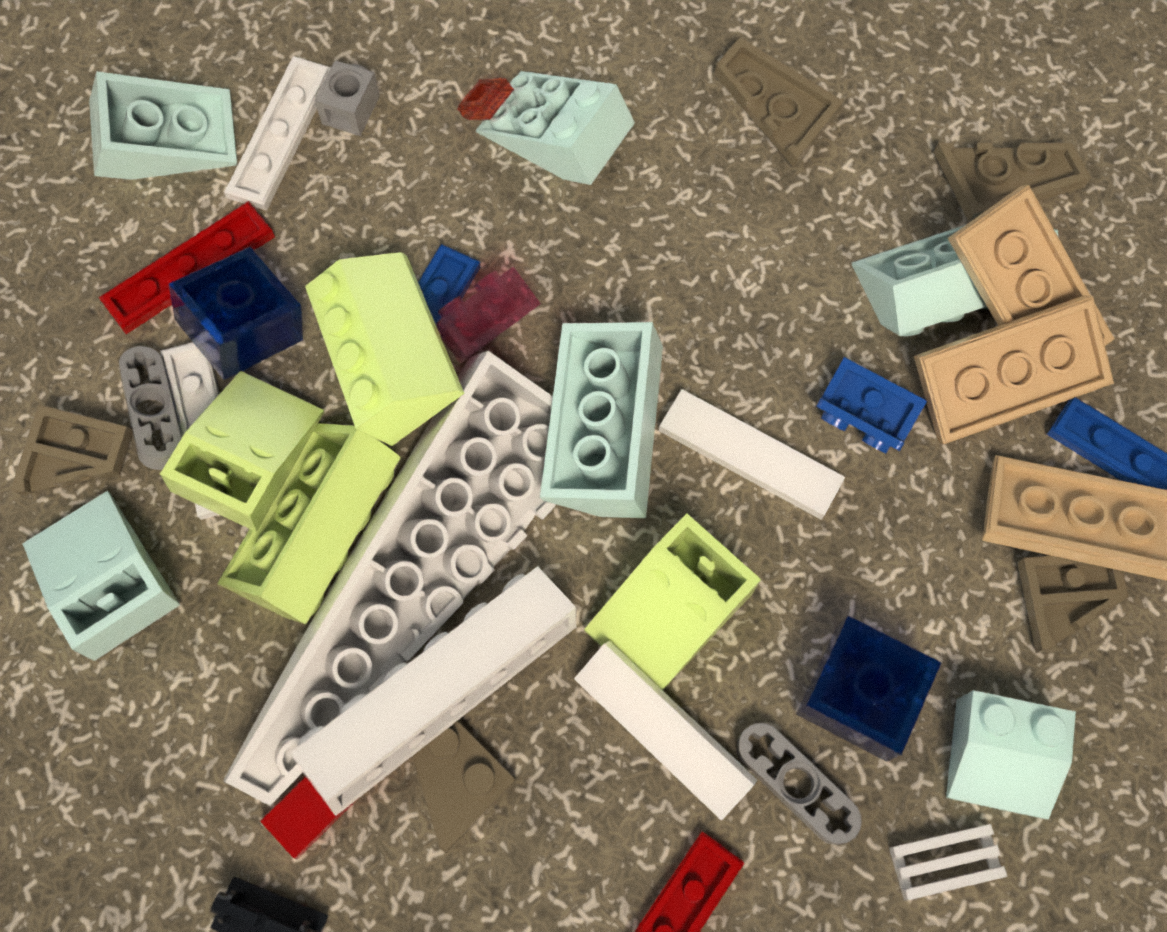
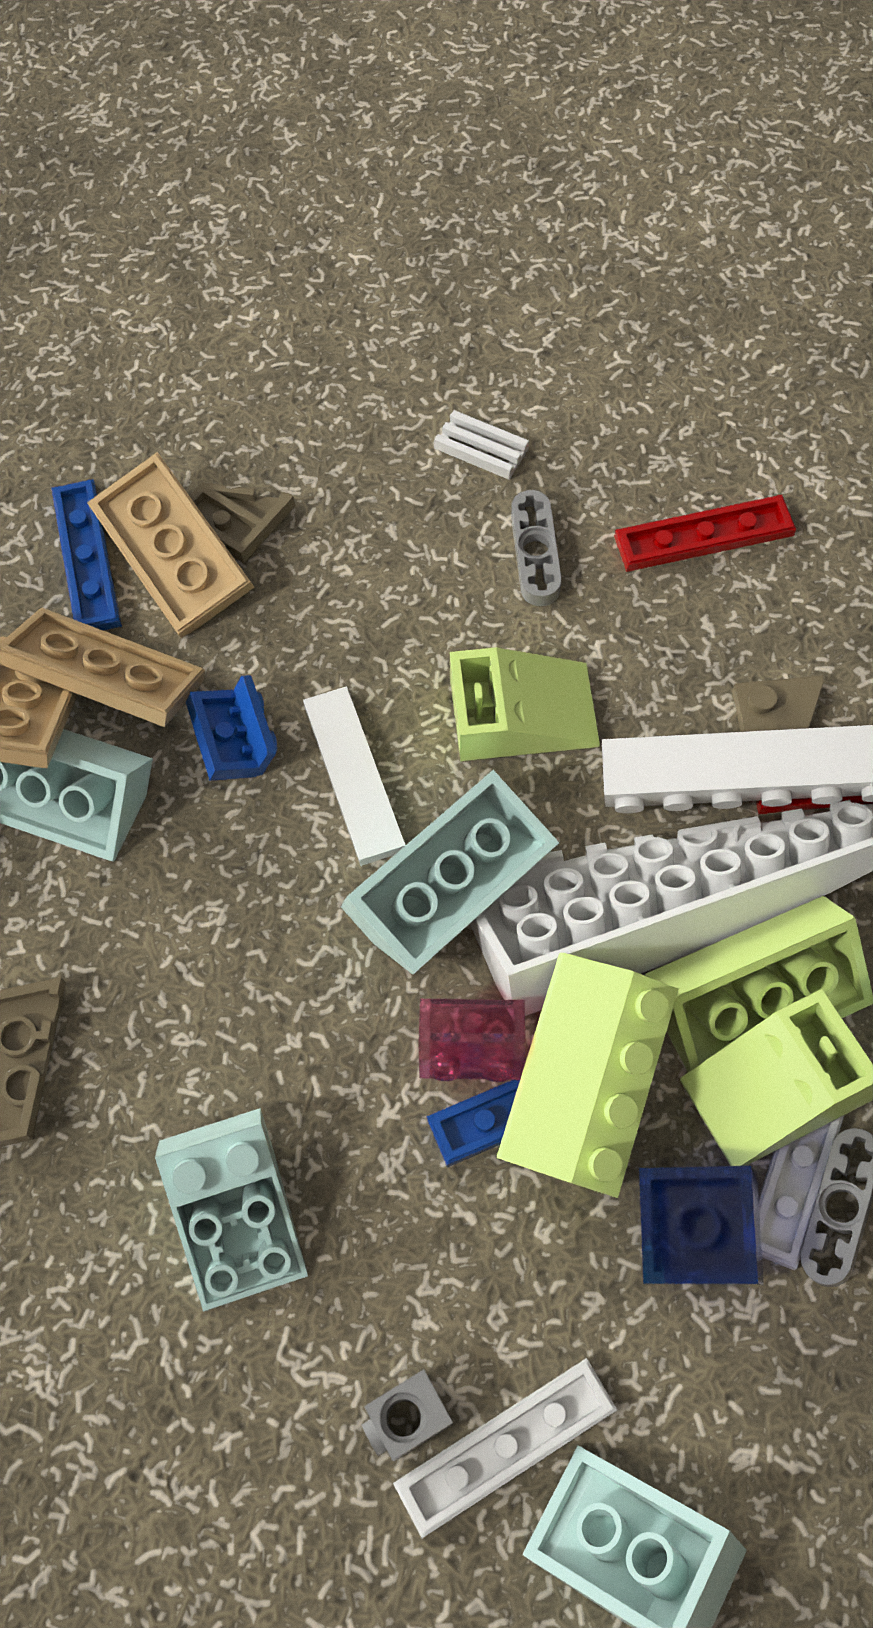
camera: 135 degrees left, 5 degrees down
(148, 290) = (711, 1351): red tile -> none
(485, 99) = (272, 1293): clear red tile -> none
(665, 730) = (599, 640): white tile -> none
(869, 689) = (438, 551): clear blue brick -> none
(1009, 753) = (378, 464): light aqua slope -> none

